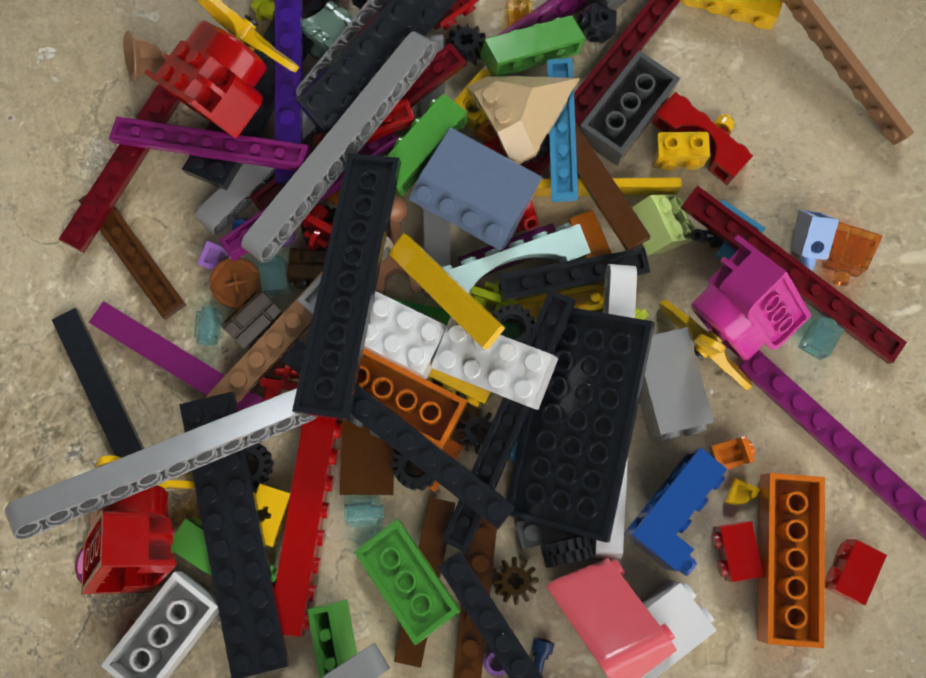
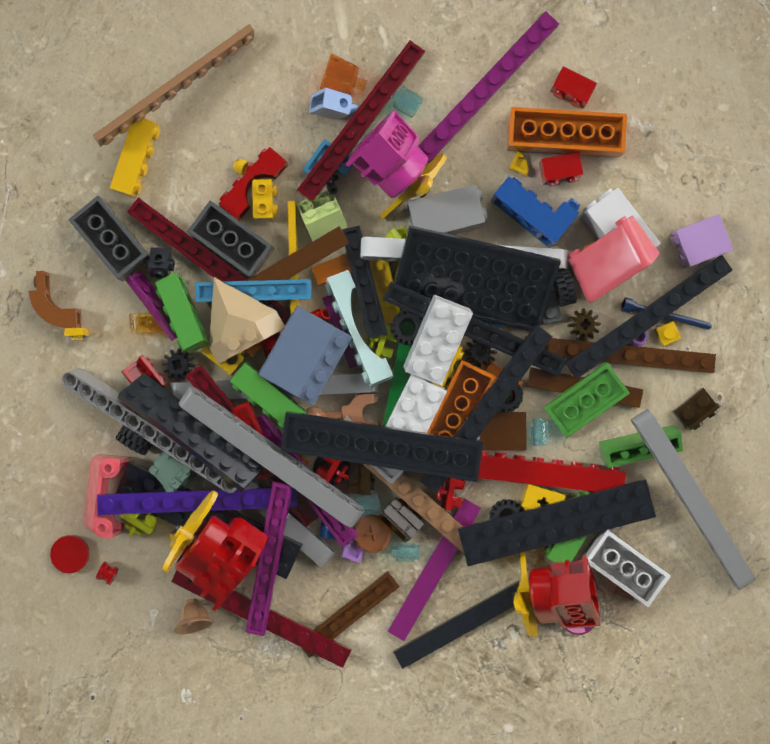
camera: 90 degrees left, 10 degrees up
(151, 466) = (517, 573): light grey beam -> none
(446, 292) = (385, 376): yellow tile -> none
(733, 452) = (492, 169): orange bracket -> none

